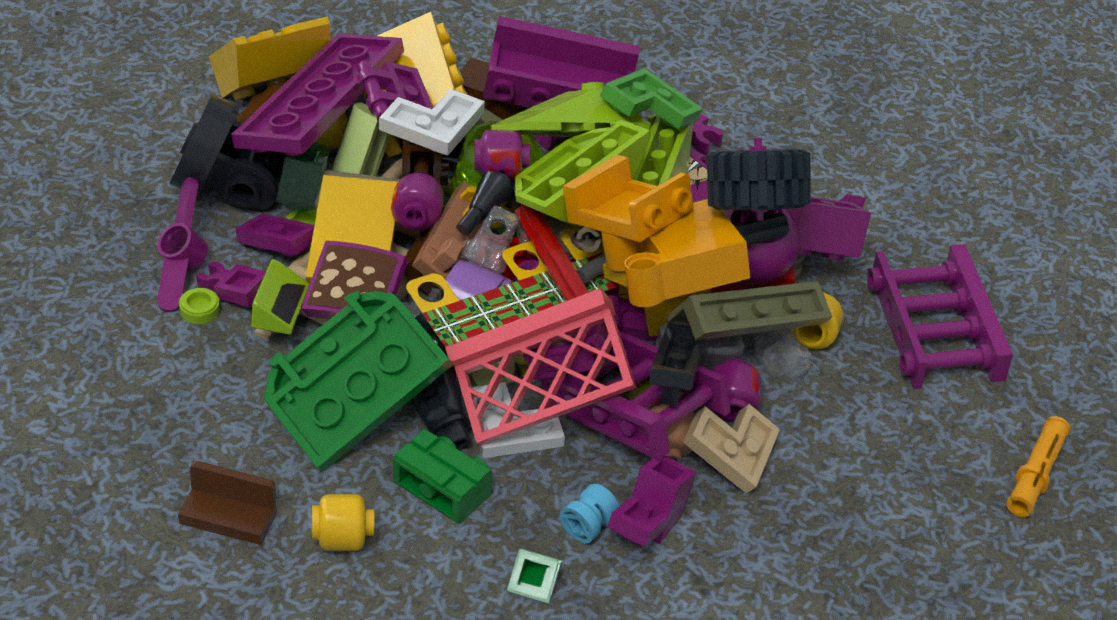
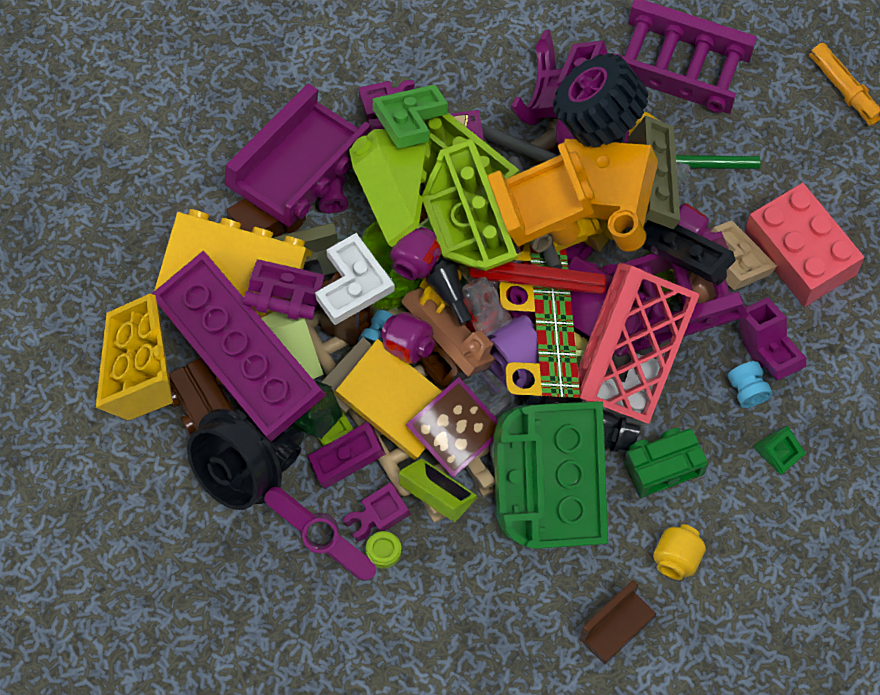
camera: 60 degrees left, 20 degrees up
(797, 495) = (804, 244): none -> coral brick
(843, 396) = (720, 162): none -> green bar

